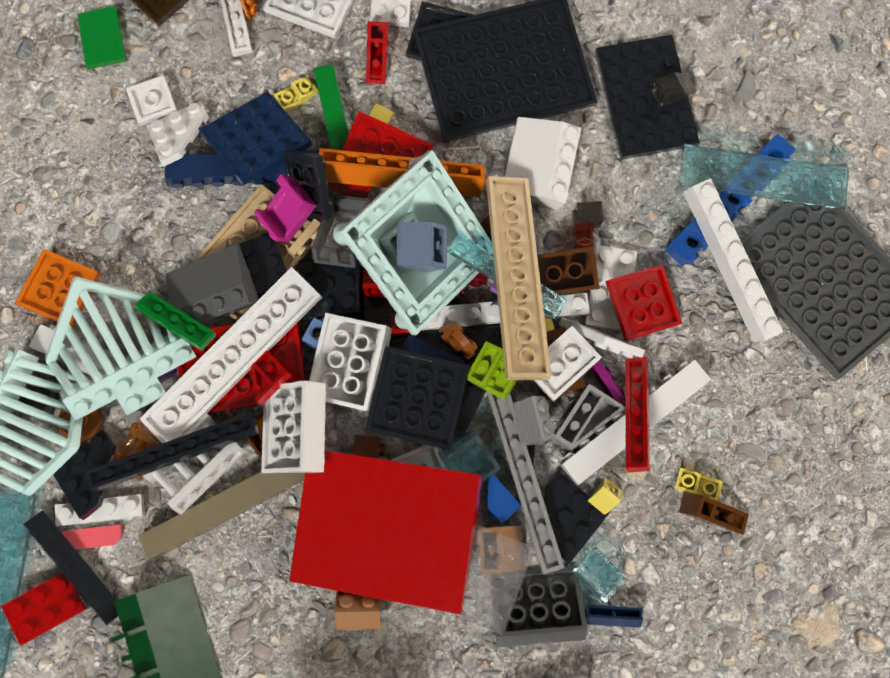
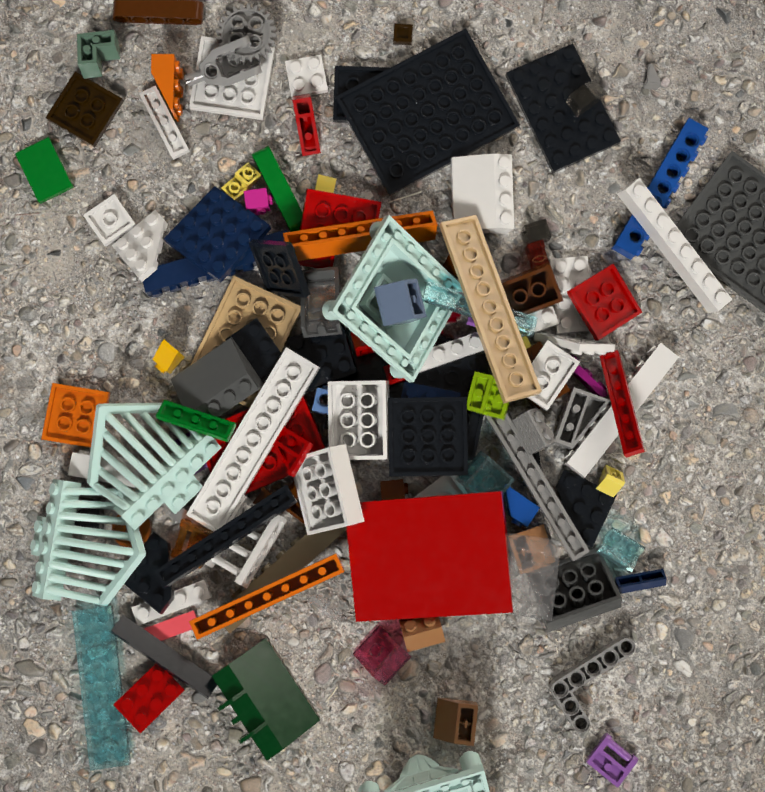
camera: 15 degrees left, 5 degrees up
(168, 250) = (167, 357): none -> yellow slope
(196, 527) = (266, 596): none -> orange brick
(286, 210) = (266, 296): dark pink panel -> none
(299, 246) = (286, 325): tan plate -> none
(307, 115) = (258, 201): none -> dark pink brick
(308, 626) = (382, 655): none -> clear pink slope
(456, 341) = (448, 377): dark orange plate -> none
(698, 484) = (688, 451): light yellow slope -> none
(713, 512) = (705, 472): reddish brown slope -> none
(765, 176) = (685, 161): clear light blue plate -> none

